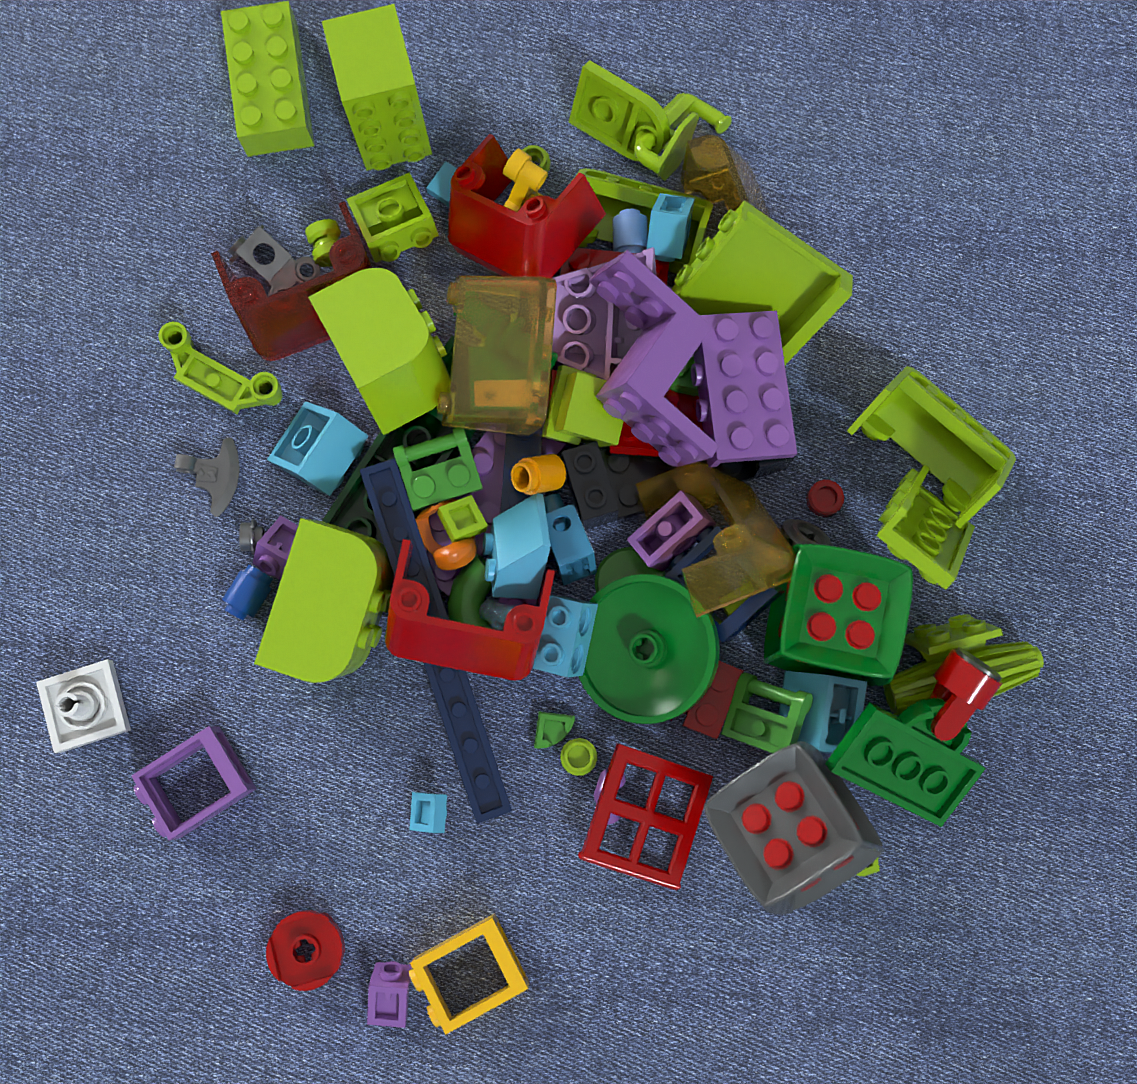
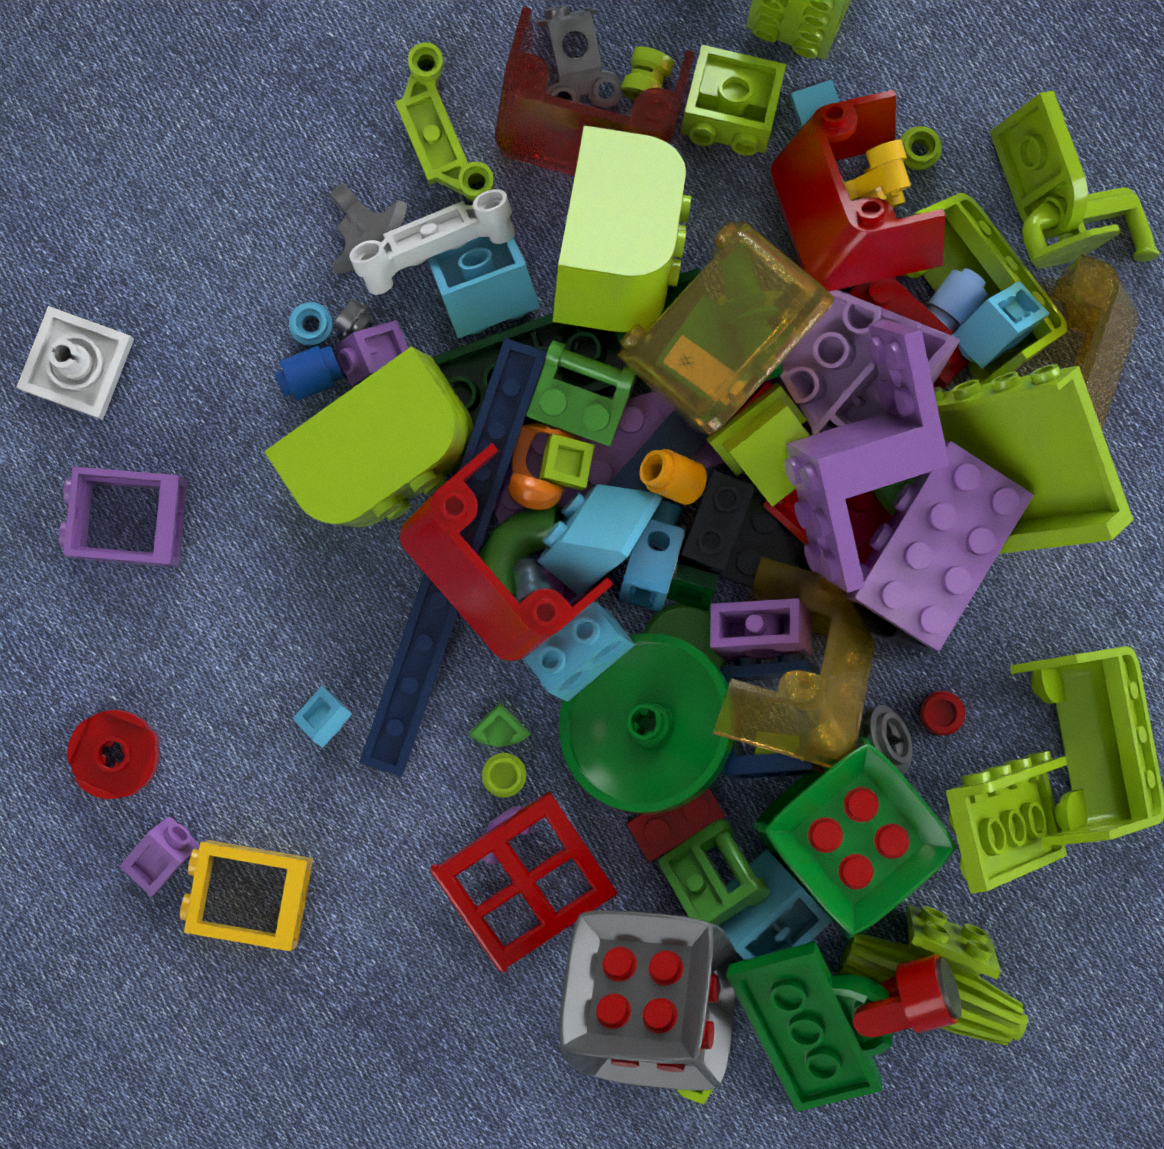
camera: 40 degrees right, 5 degrees up
(218, 553) = (301, 315): none -> medium azure plate
(267, 436) = (431, 236): none -> white plate
(606, 538) = (692, 586): none -> dark green plate

